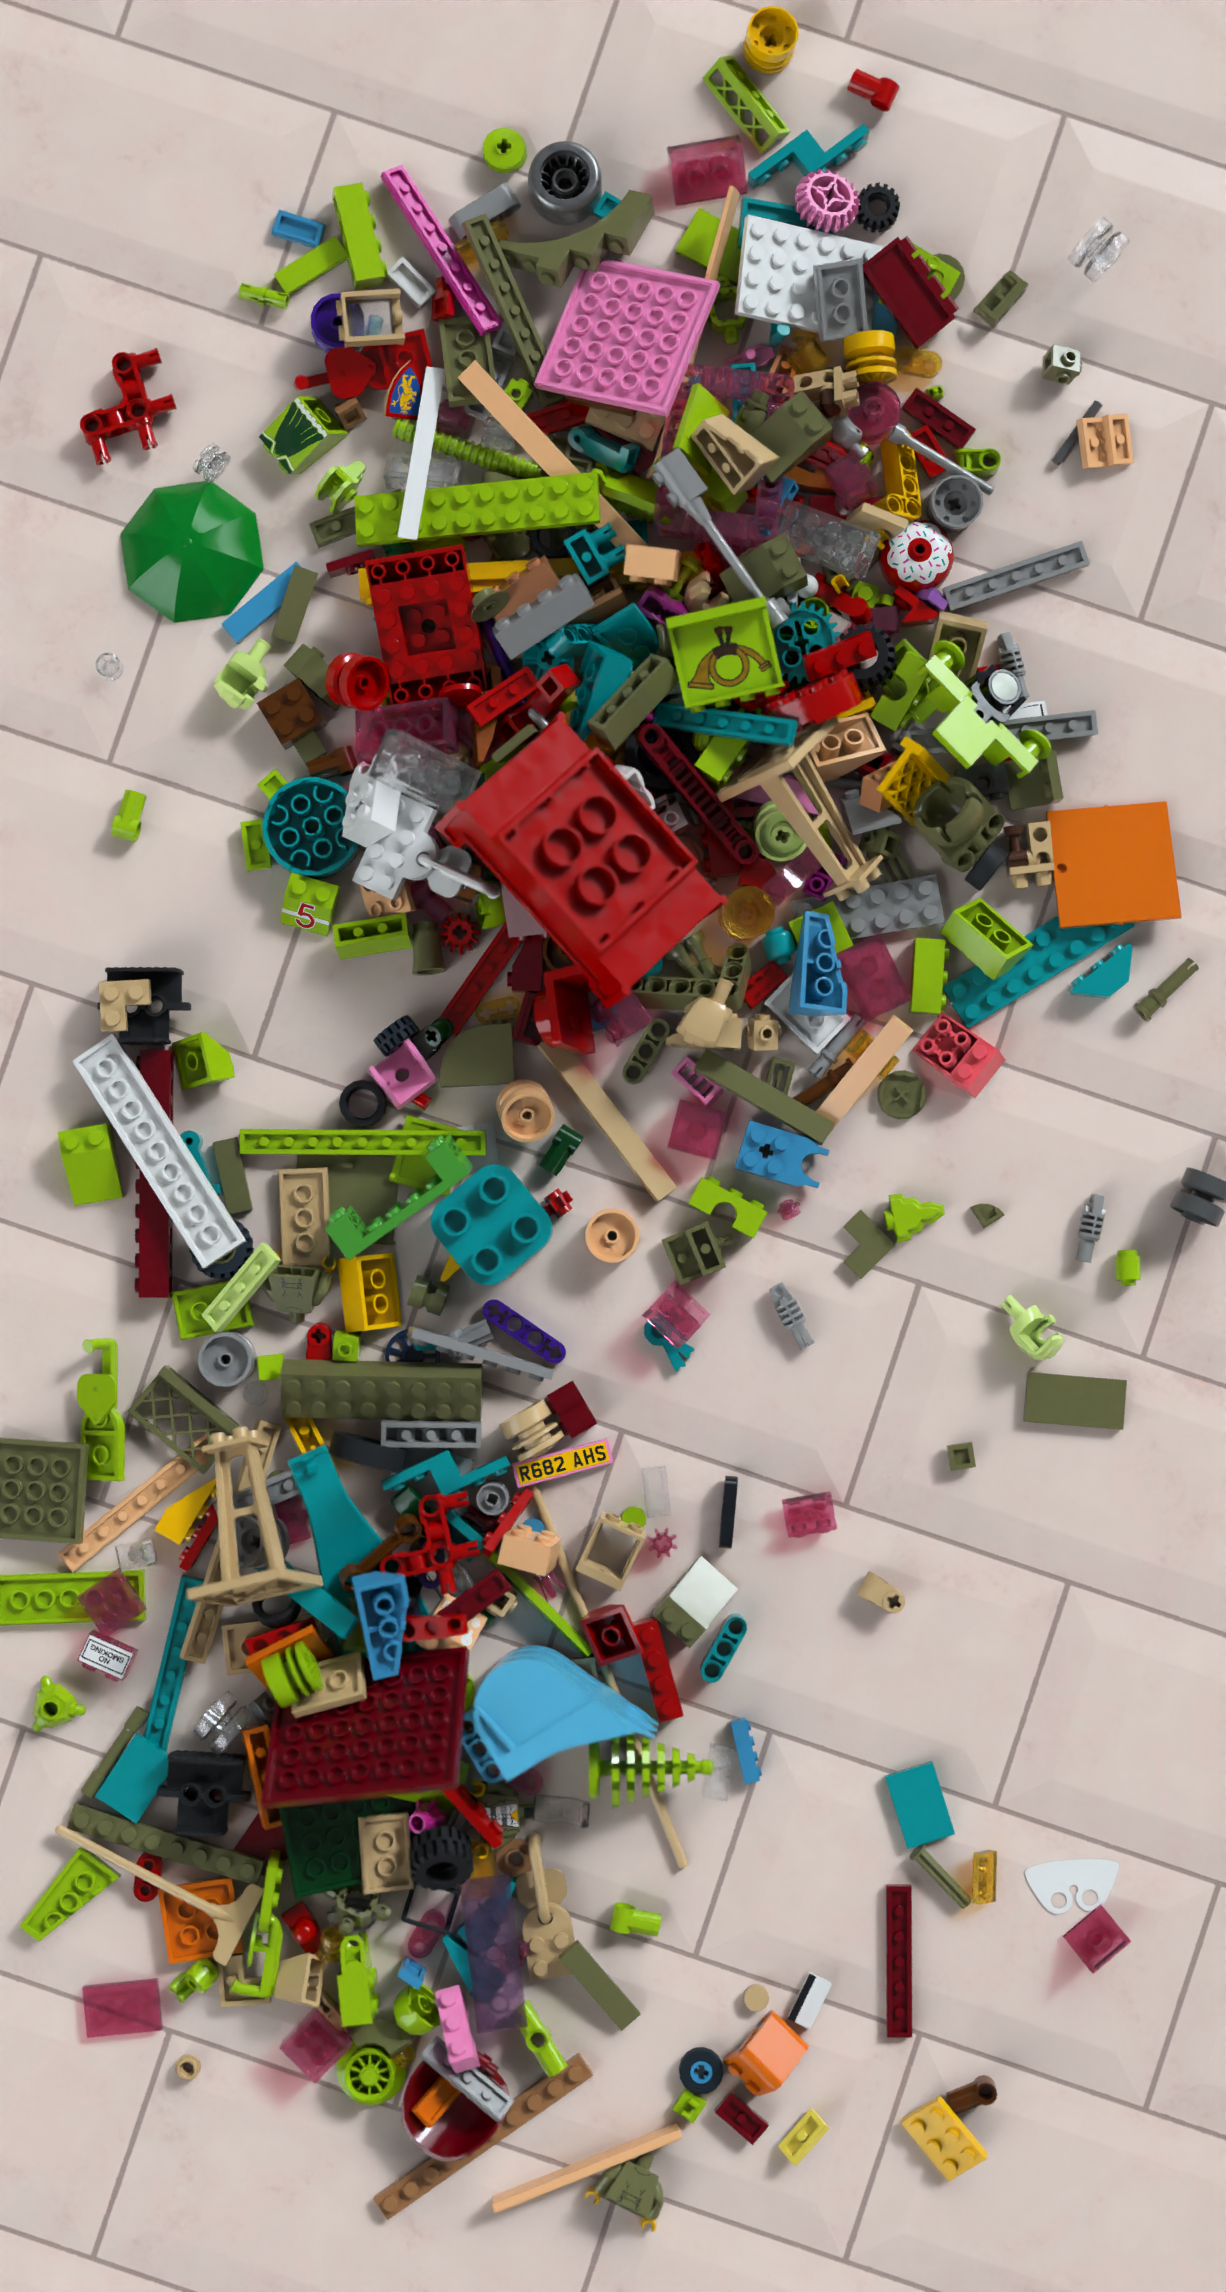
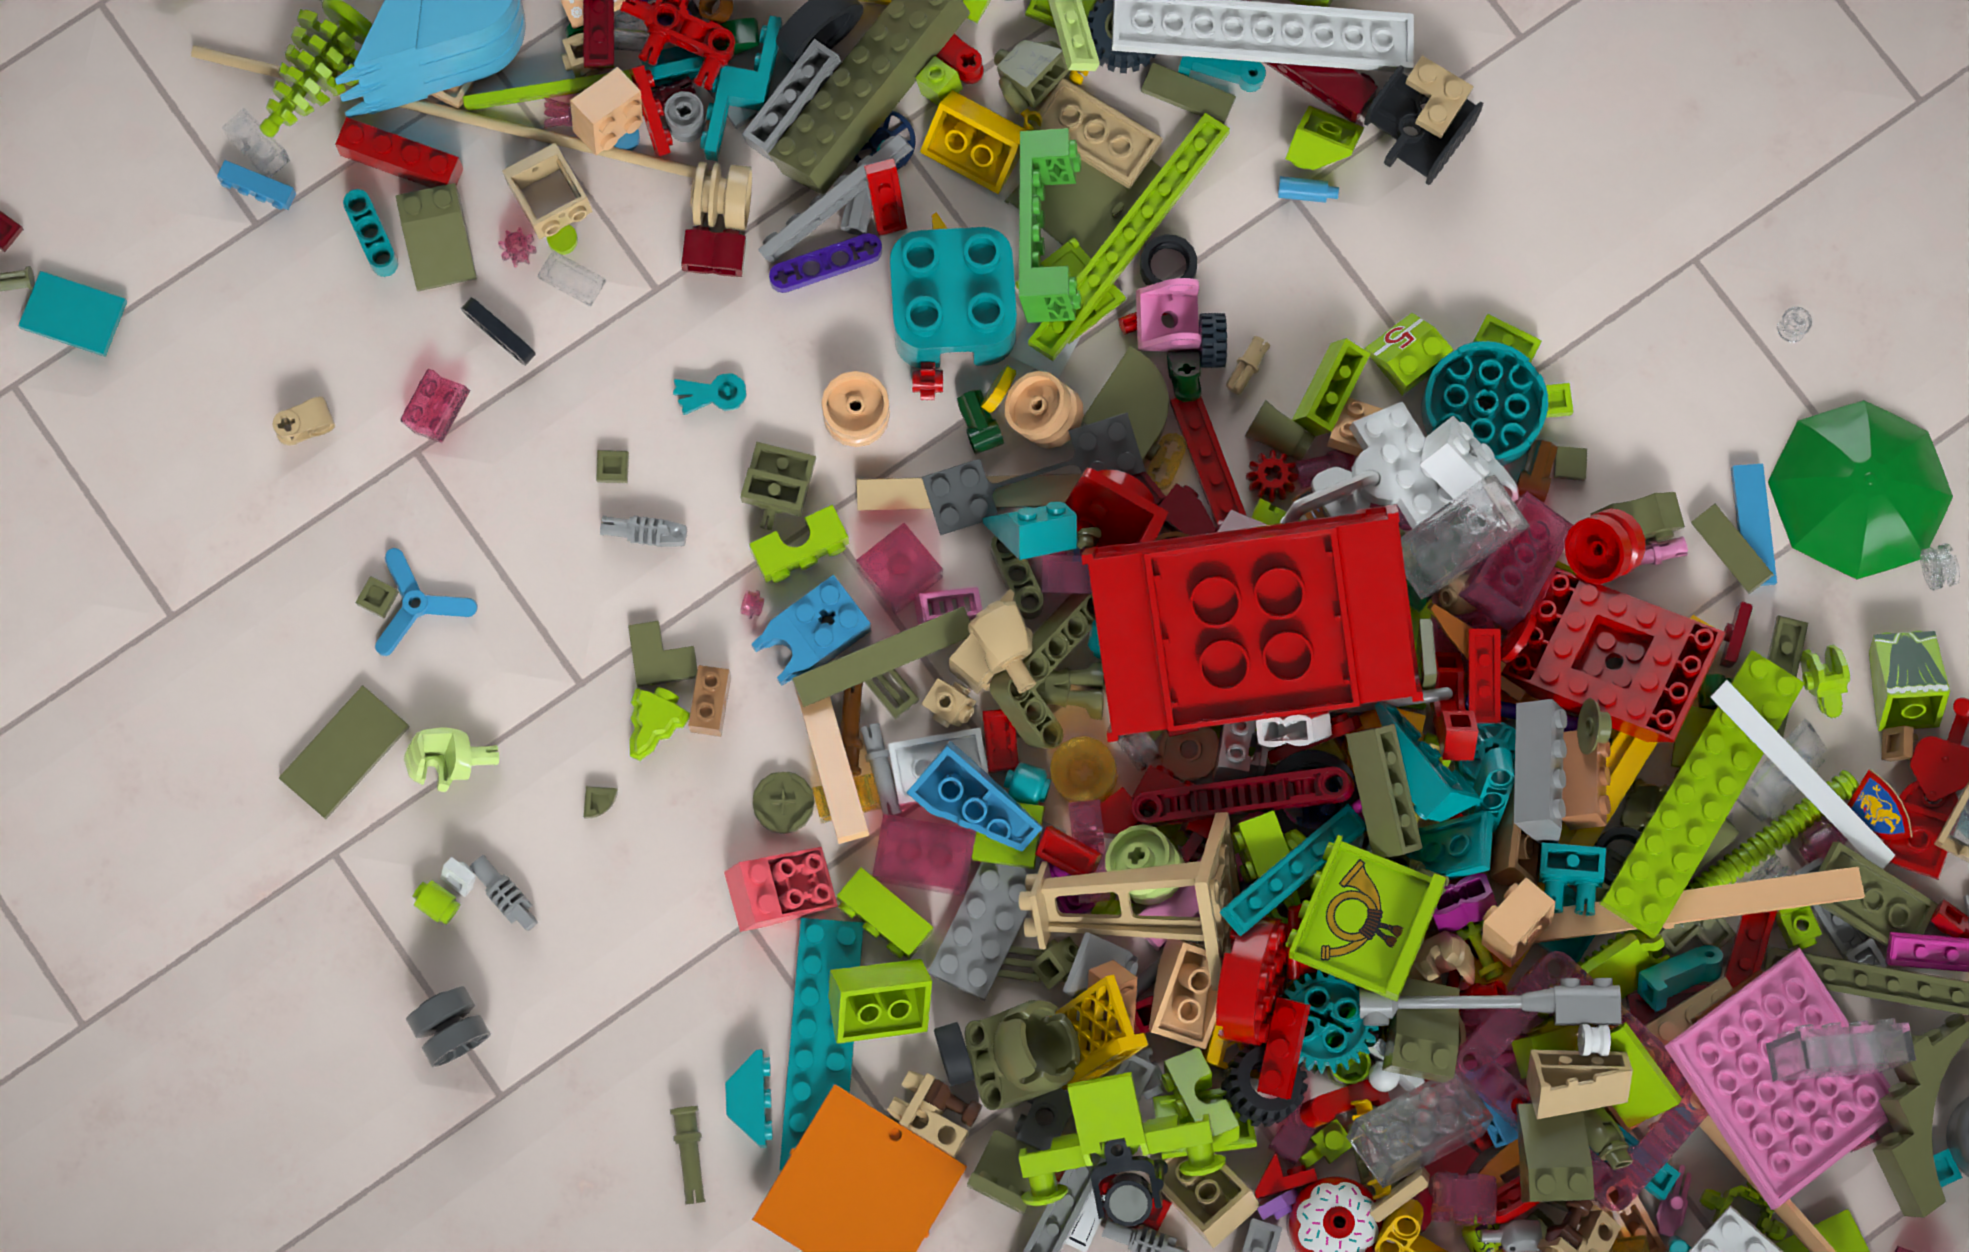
camera: 125 degrees right, 10 degrees down
(127, 822) = (1620, 233): lime piece -> none
(243, 677) = (1690, 443): yellowish green piece -> none
(244, 1049) = (1306, 189): none -> dark azure cylinder
(291, 713) = (1618, 466): reddish brown brick -> none
(325, 646) = (1660, 551): none -> bright pink pin
(395, 1003) = (1247, 365): none -> tan axle
(428, 1295) = (937, 186): olive wheel -> none
(455, 1319) = (886, 197): none -> red plate
(531, 1152) = (998, 389): none -> yellow tile
(562, 1463) = (667, 208): tile -> none
(587, 308) = (1840, 1050): none -> clear brick
(594, 1017) = (1088, 537): none -> olive arm
(611, 1634) = (468, 130): red slope -> none
(613, 1056) = (1036, 530): none -> teal slope
(617, 1122) = (965, 495): none -> dark grey hinge
(676, 1315) = (730, 418): clear pink slope -> none
(700, 458) = (1594, 1039): none -> white wheel
(756, 1997) = (16, 30): tan tile -> none
(762, 1369) = (612, 466): none -> olive tile
(810, 882) = (1067, 853): none -> red tile
(872, 1188) = (709, 700): none -> medium nougat brick
(940, 1418) = (410, 591): none -> dark azure piece
(1101, 1265) = (458, 876): none -> white plate

